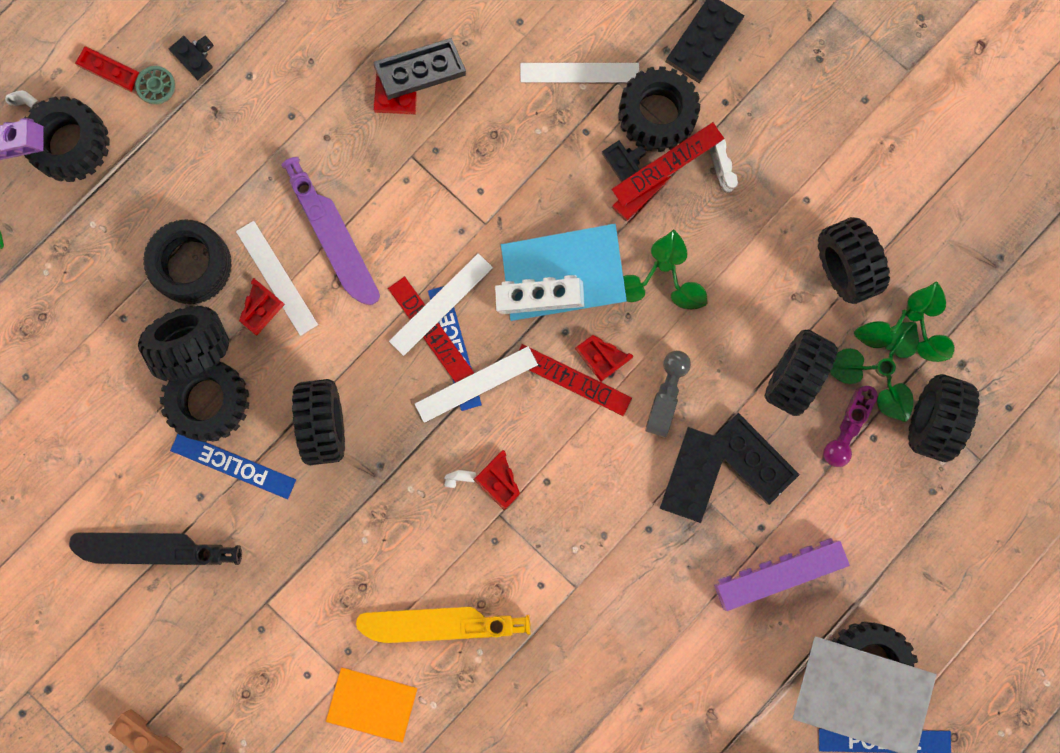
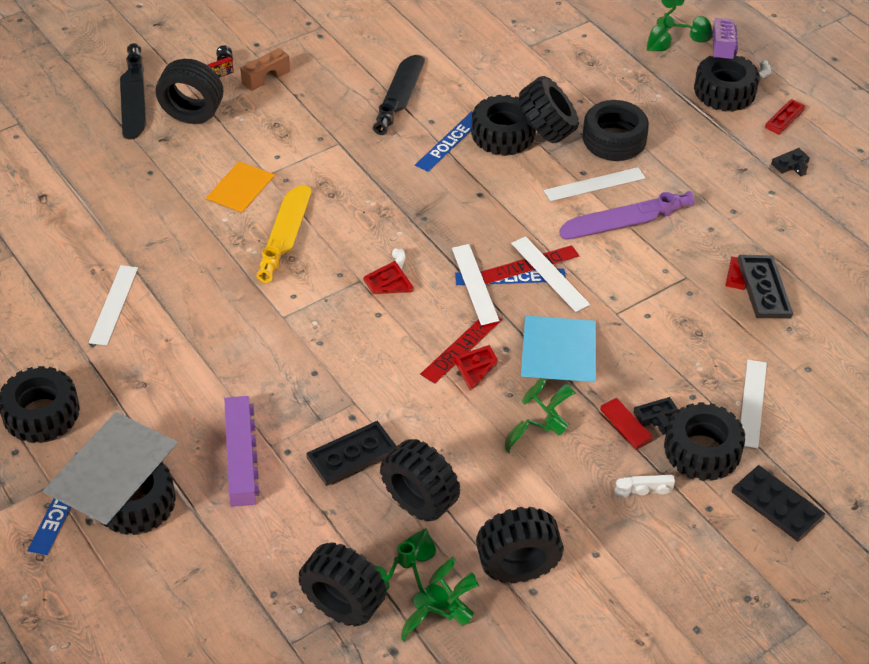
camera: 105 degrees right, 35 degrees down
(155, 85) = (768, 138): sand green wheel -> none
(259, 308) = (571, 168): red wing -> none
(318, 422) = (467, 185): black tyre -> none
(571, 299) = (541, 326): white brick -> none
(667, 164) = (649, 439): red sticker -> none
(675, 365) = (421, 397): dark grey beam -> none
(694, 474) = (351, 405): black plate -> none
(838, 452) = (369, 537): magenta beam -> none

